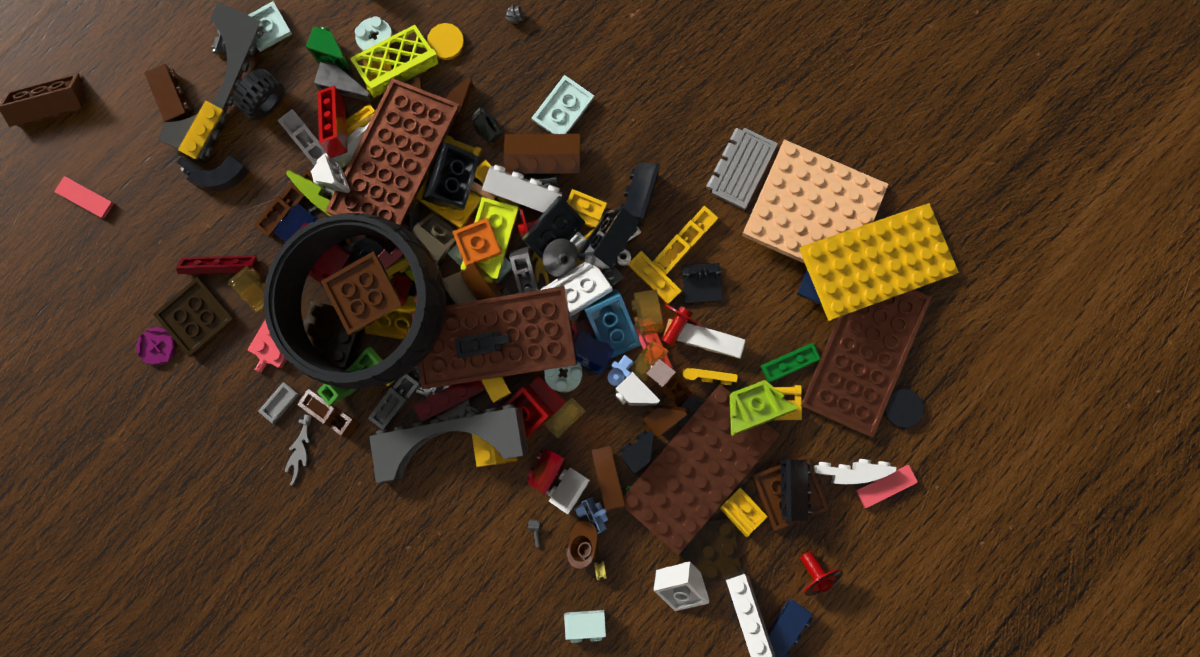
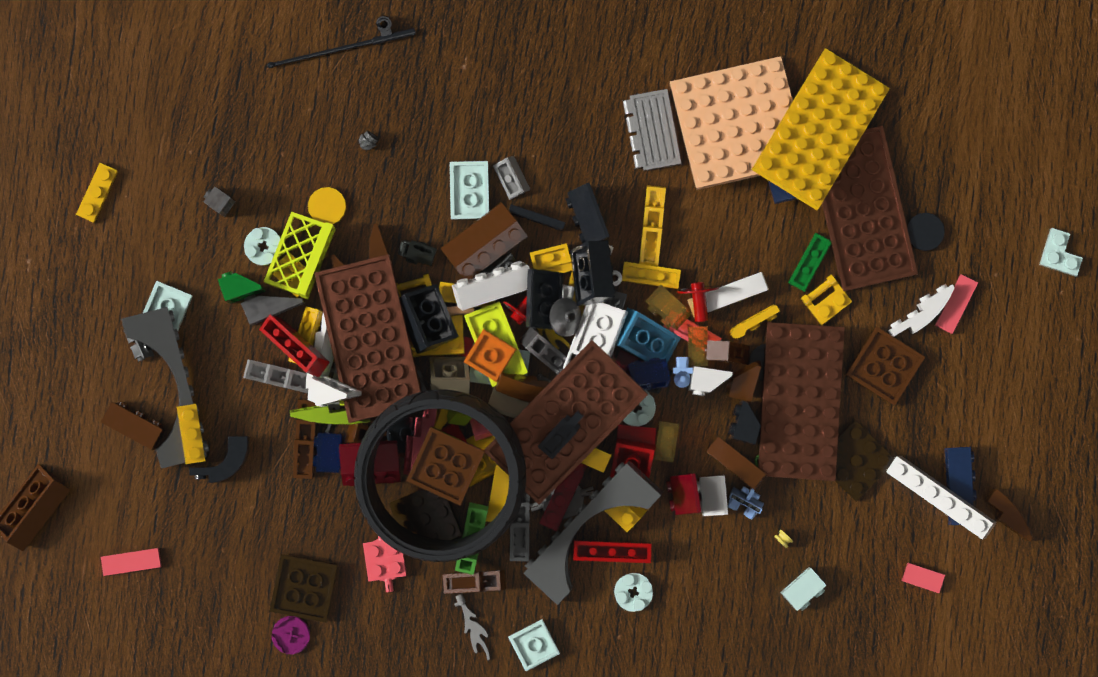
camera: 45 degrees left, 5 degrees up
(215, 264) = (288, 532): dark red plate -> none
(249, 287) = (334, 530): clear yellow brick -> none
(258, 94) = (213, 368): black tyre -> none
(278, 402) = (426, 603): light grey tile -> none
(334, 501) = (534, 645): none -> light aqua plate
(435, 518) = (638, 602): none -> light aqua plate
(453, 473) = (612, 551): none -> red brick
(534, 526) = (705, 544): dark grey hand -> none
(582, 545) = (755, 529): reddish brown piece -> none
(598, 166) = (536, 217): none -> black tile
(603, 123) = (511, 177): none -> light grey slope
(681, 586) = (855, 503): white slope -> none
(702, 282) = (692, 250): black hinge -> none
(743, 512) = (860, 409): yellow plate -> none
(756, 406) = (810, 318): lime wing -> none
(795, 490) = (887, 362): black slope -> none
(822, 580) = (959, 416): red piece -> none
(999, 509) = (1055, 255): none -> light aqua plate

